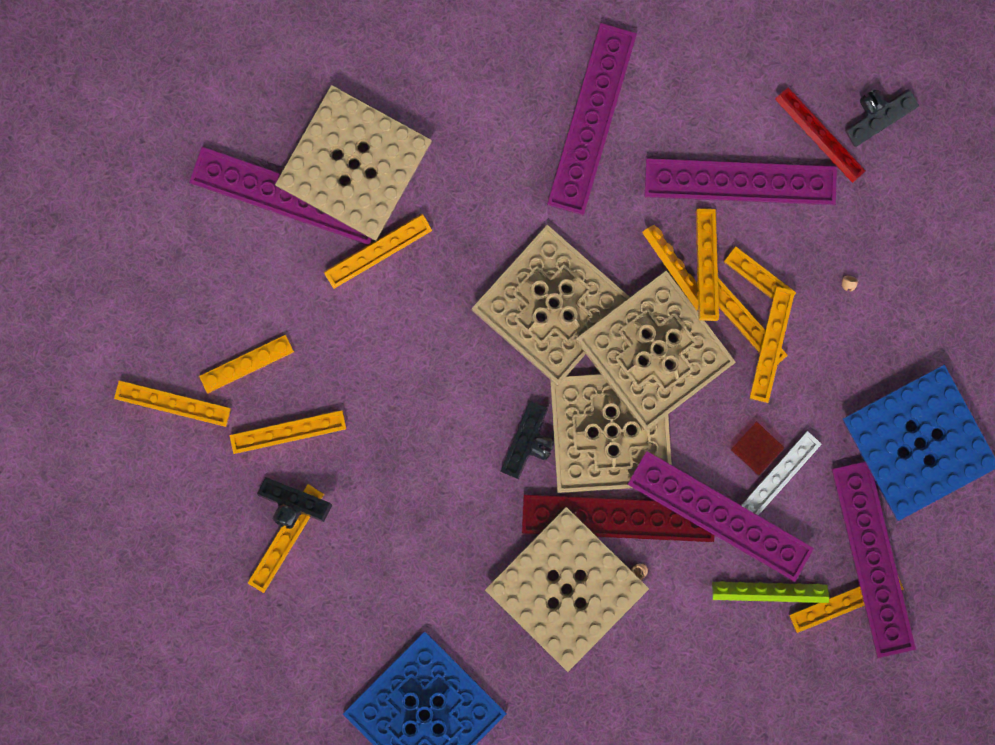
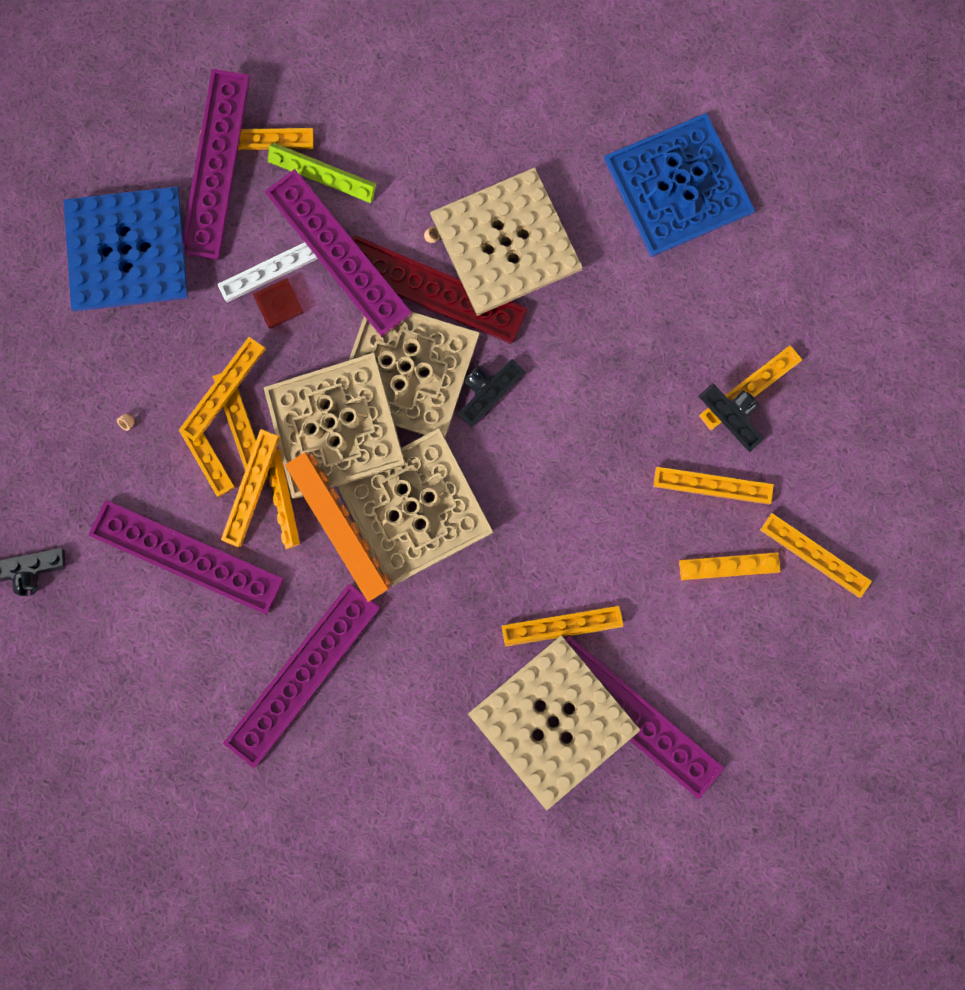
camera: 150 degrees left, 5 degrees down
(612, 259) = (338, 526): none -> orange brick
(820, 135) = (90, 572): red plate -> none

